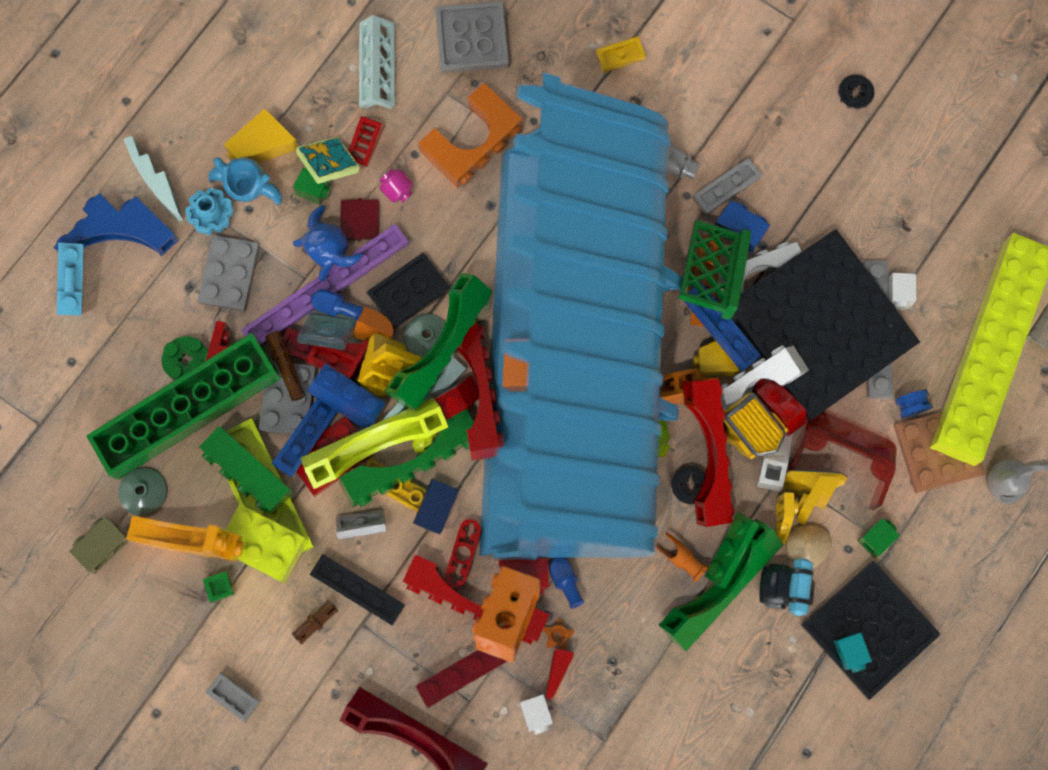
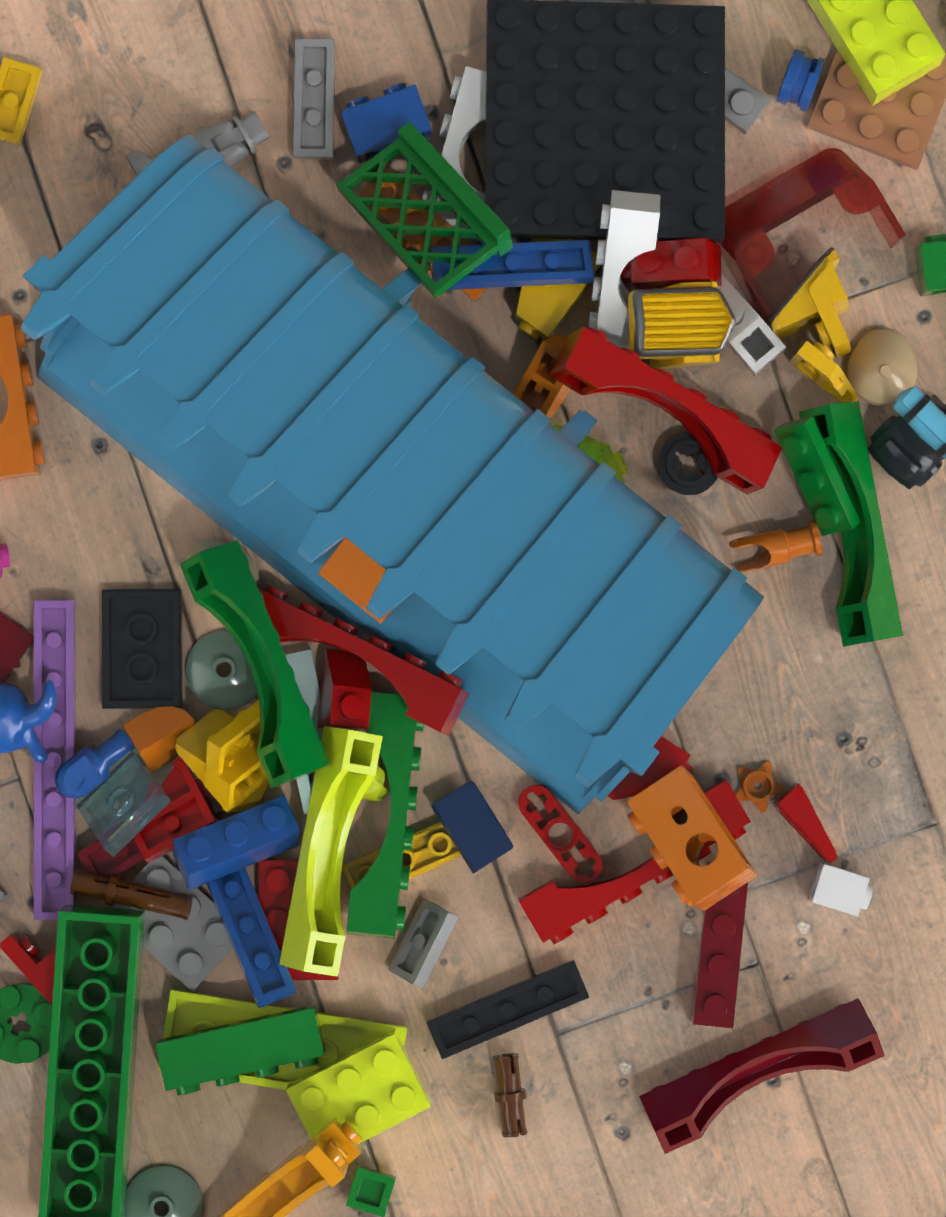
camera: 50 degrees left, 10 degrees up
(565, 580) = (695, 724): blue arm -> none

